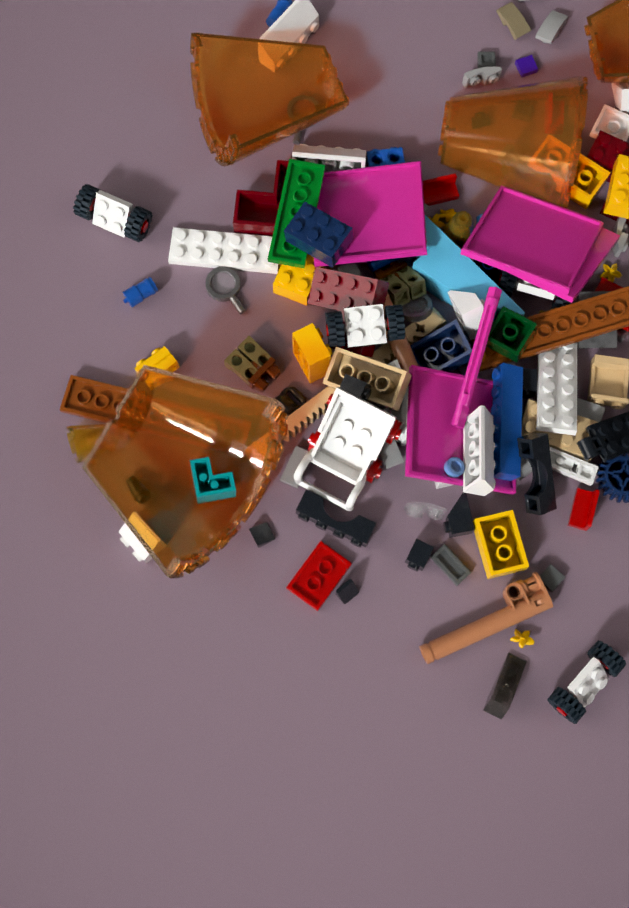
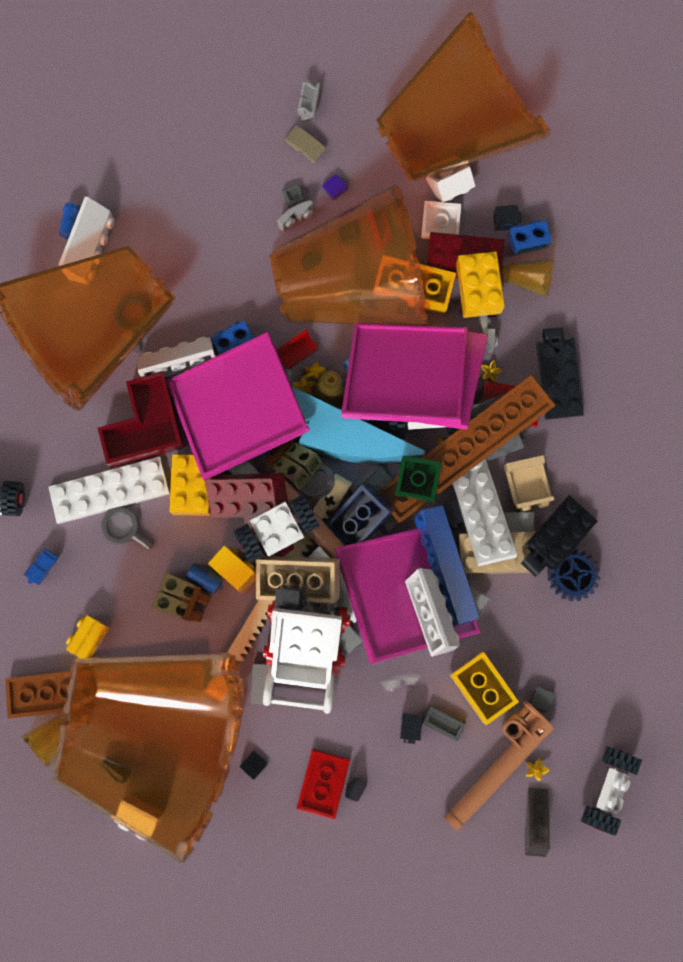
camera: 20 degrees left, 5 degrees up
(210, 486) = (183, 743): teal brick -> none
(283, 356) = (207, 579): none -> blue piece
(288, 403) = (228, 627): black piece -> none
(301, 185) = (165, 432): green plate -> none
(318, 234) = (196, 450): dark blue brick -> none
(357, 530) = (343, 726): black arch -> none
(454, 467) = (413, 635): medium blue tile -> none
(459, 520) = (435, 676): black slope -> none
(465, 396) = (395, 518): dark pink piece -> none
(467, 310) = (373, 470): white slope -> none
(541, 494) = (504, 624): black arch -> none
(550, 28) = (344, 137): light grey slope -> none
(573, 466) = (509, 583): white hinge -> none
(583, 509) = (548, 619): red panel -> none

